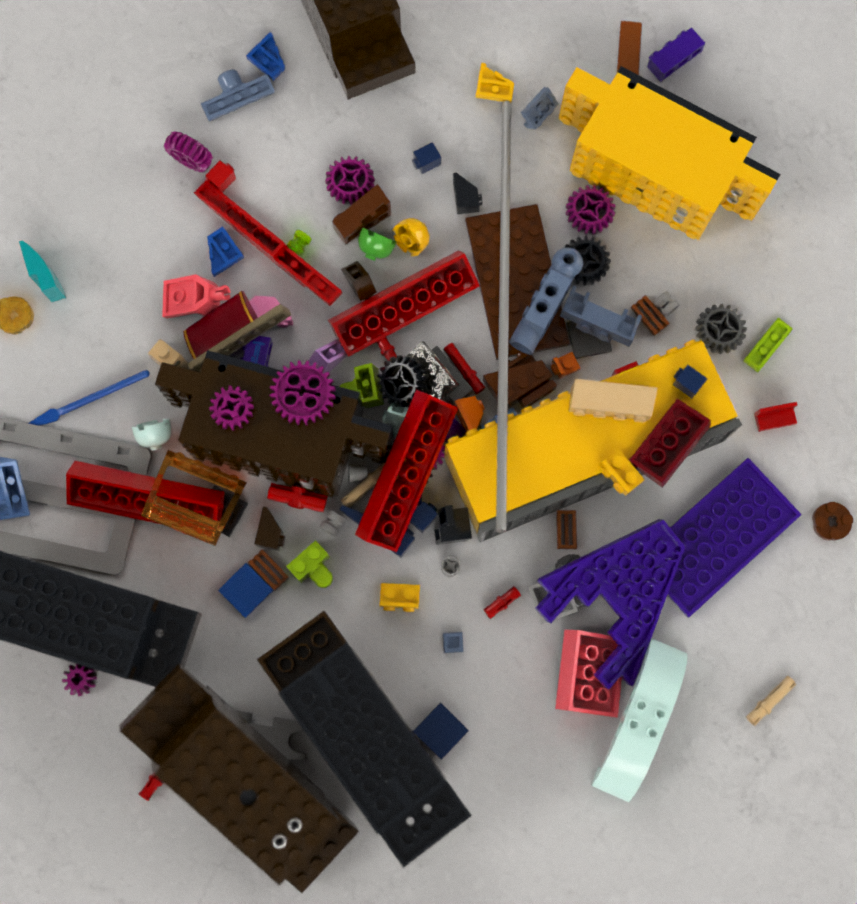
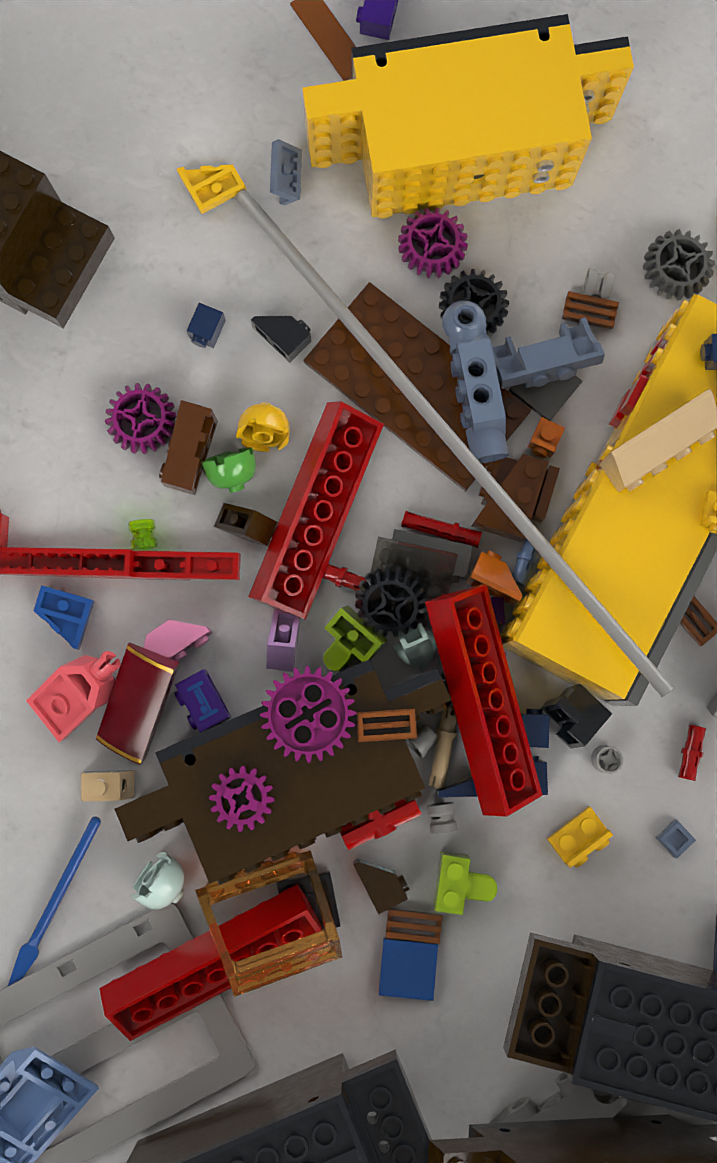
camera: 40 degrees left, 5 degrees up
(245, 334) = (171, 699): dark tan tile -> none
(352, 442) = (412, 724): none -> dark orange tile

